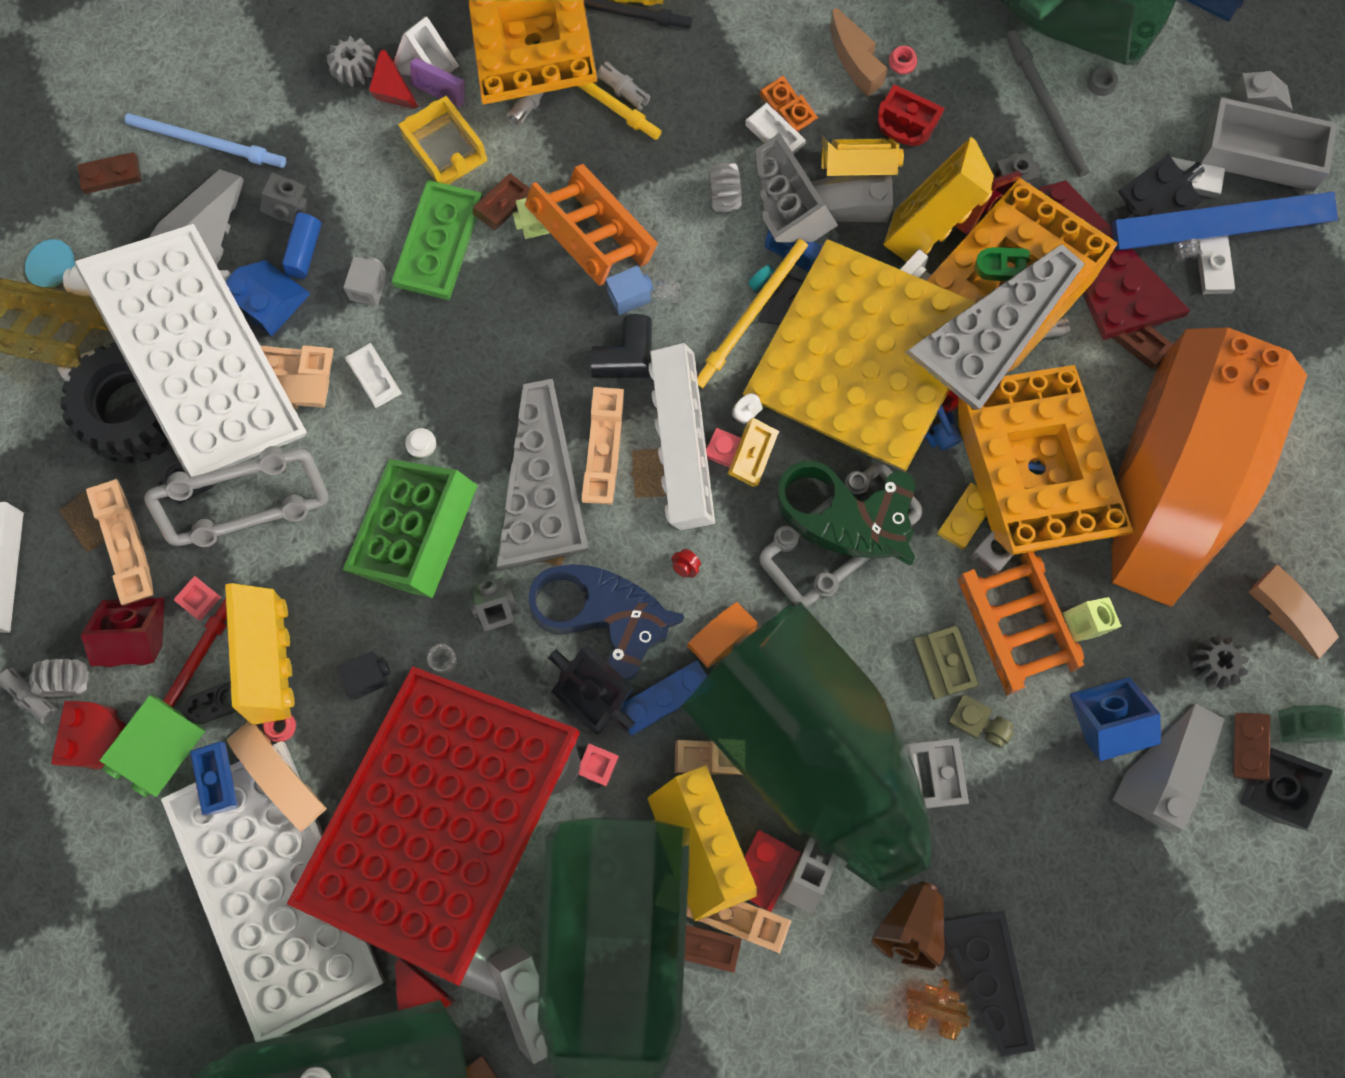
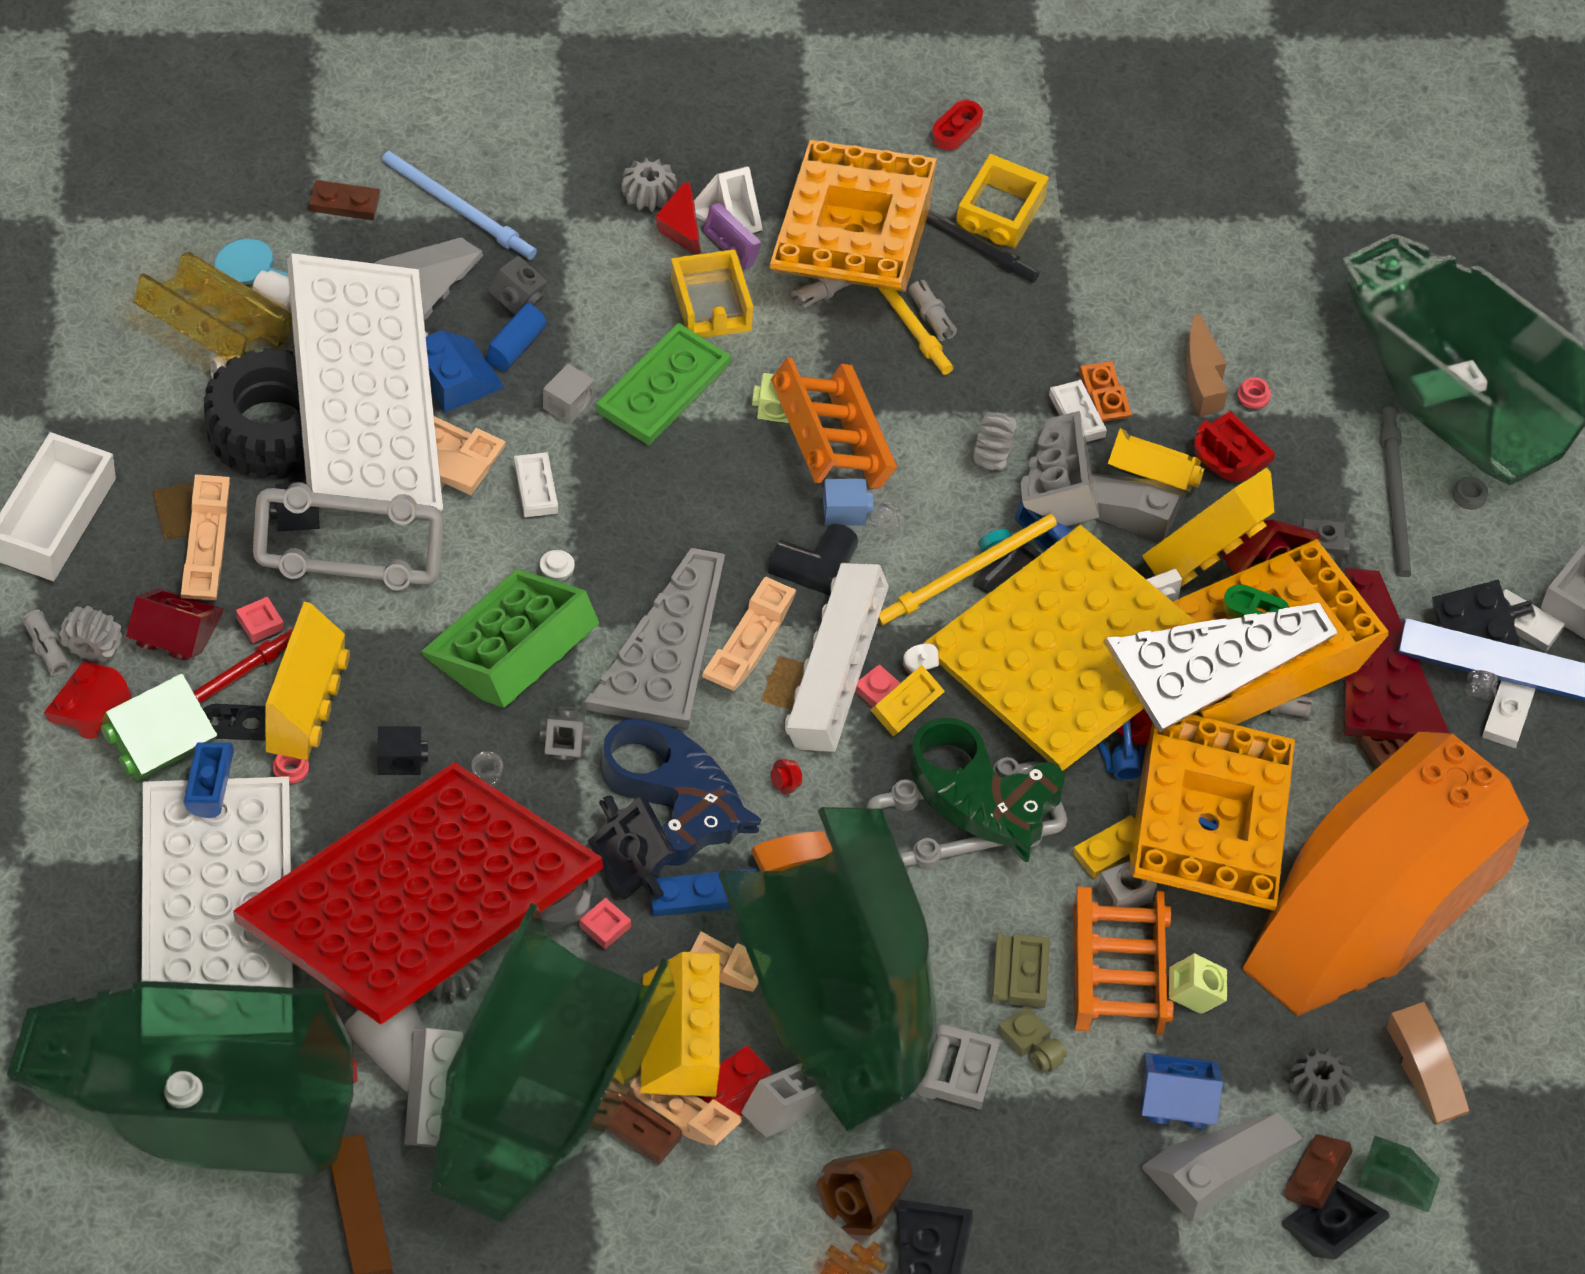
camera: 15 degrees right, 20 degrees down
(275, 776) = (271, 804): light nougat slope -> none
(500, 202) = (745, 371): copper plate -> none

